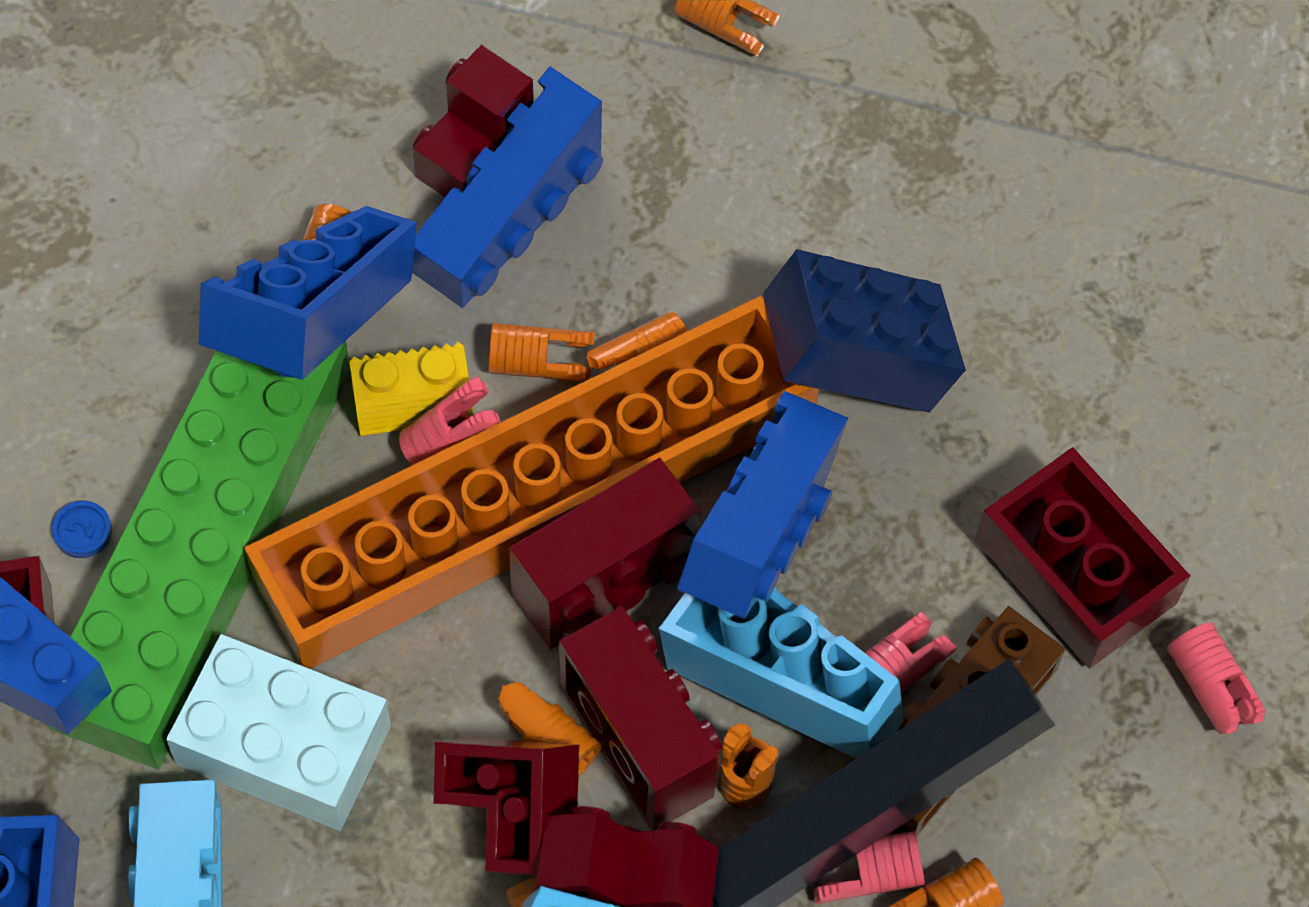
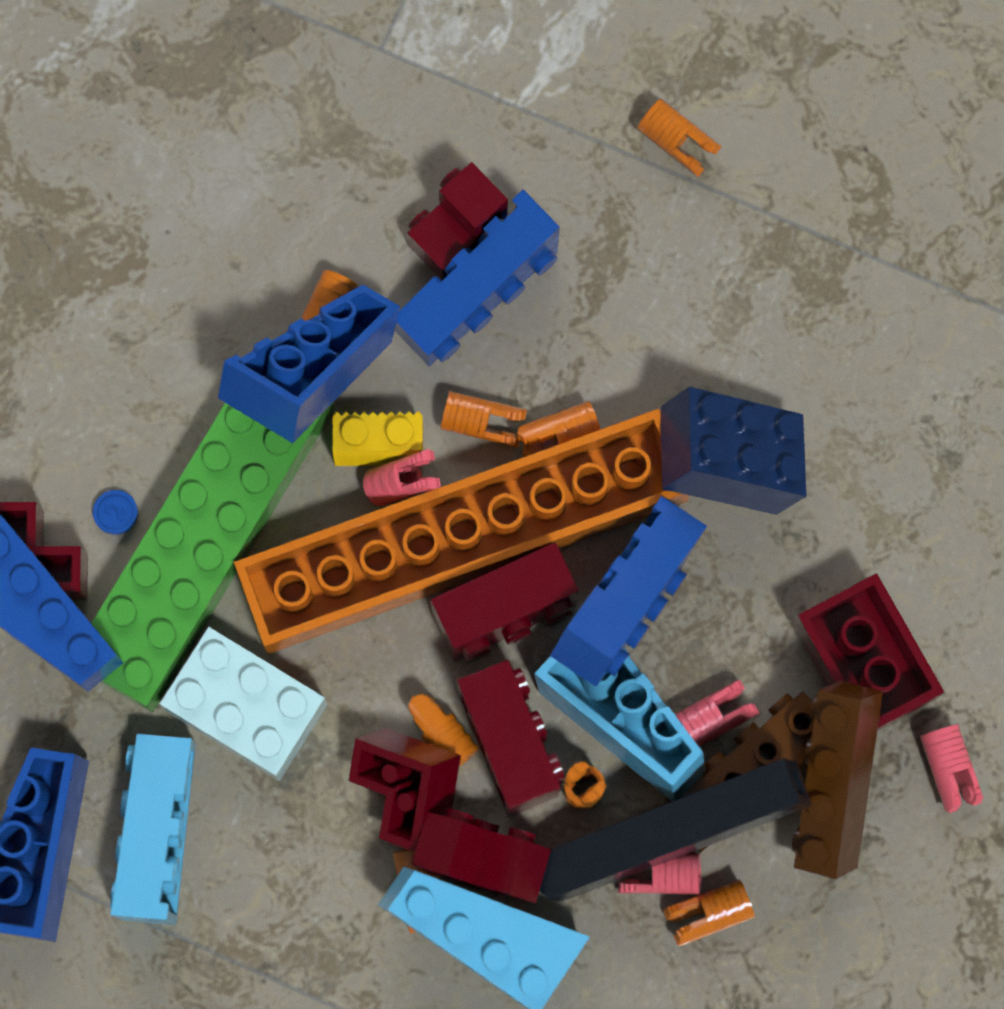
camera: 10 degrees right, 15 degrees up
(1080, 691) = (837, 778): none -> reddish brown brick

